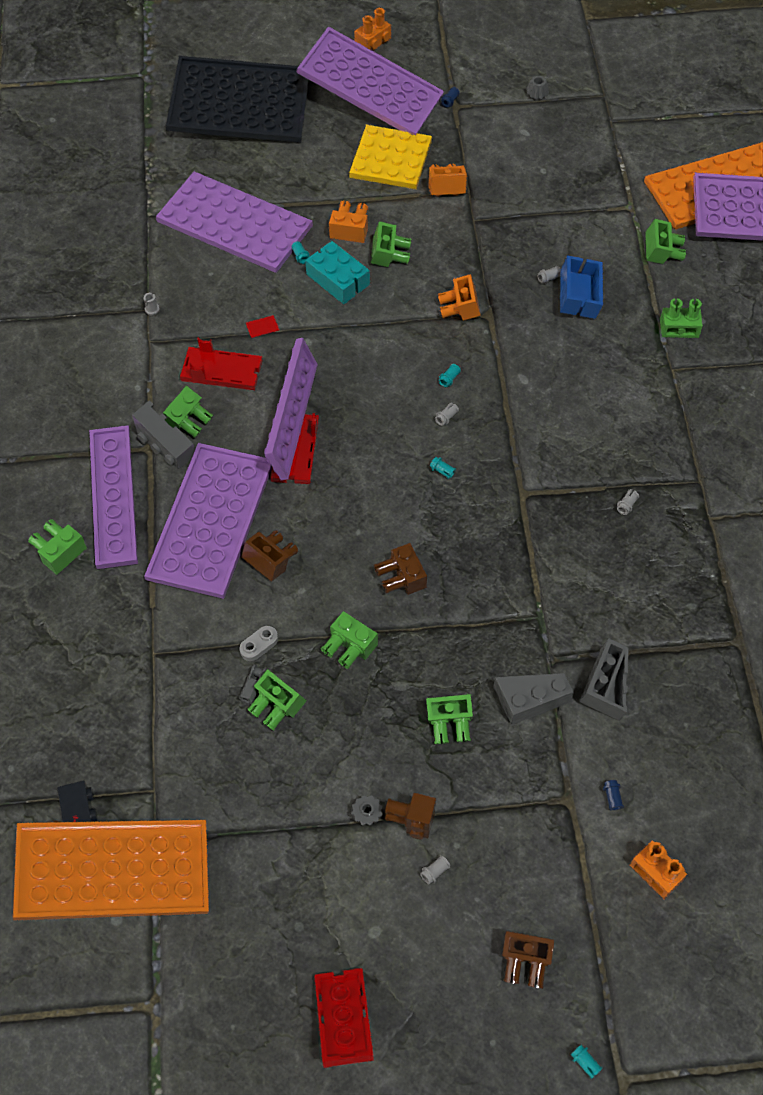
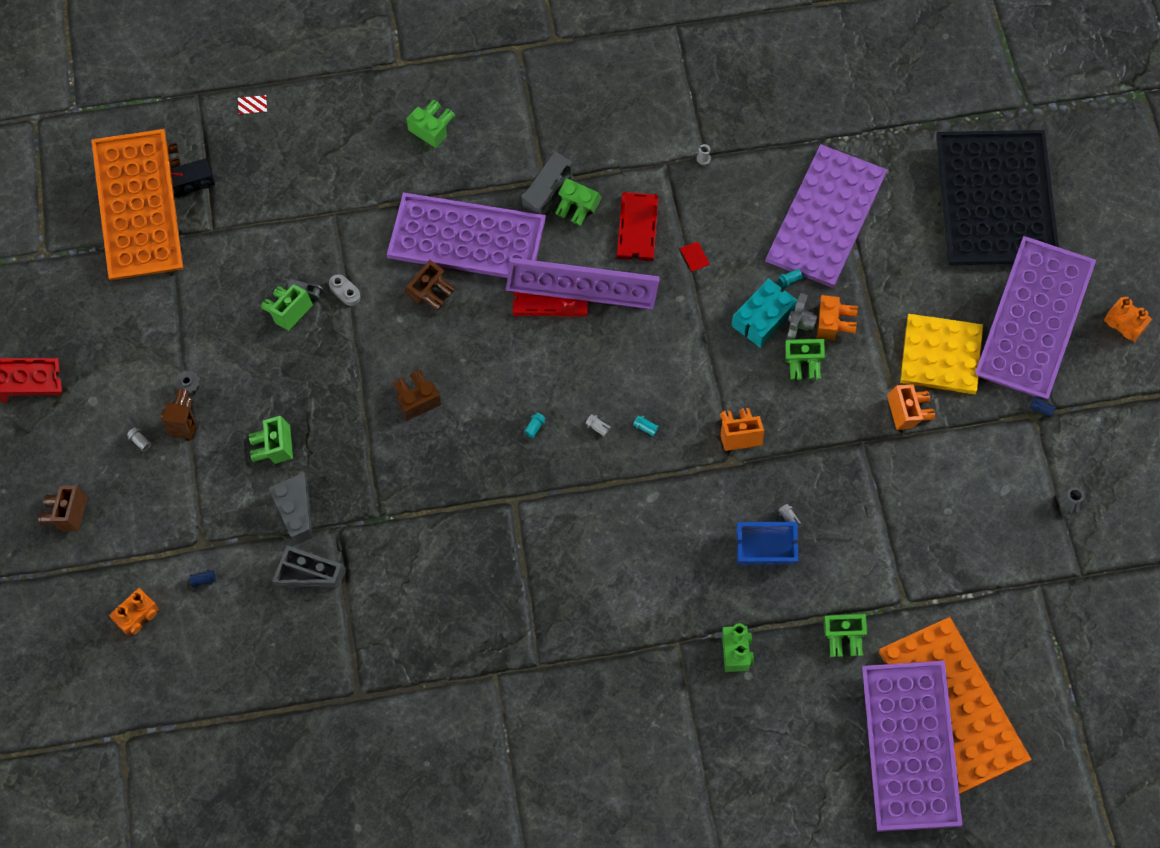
camera: 85 degrees right, 5 degrees up
(113, 497) = (485, 157): medium lavender plate -> none
(351, 241) = (800, 318): none -> flat silver plant
(354, 636) = (348, 361): bright green brick -> none
(625, 505) = (505, 593): light grey pin -> none

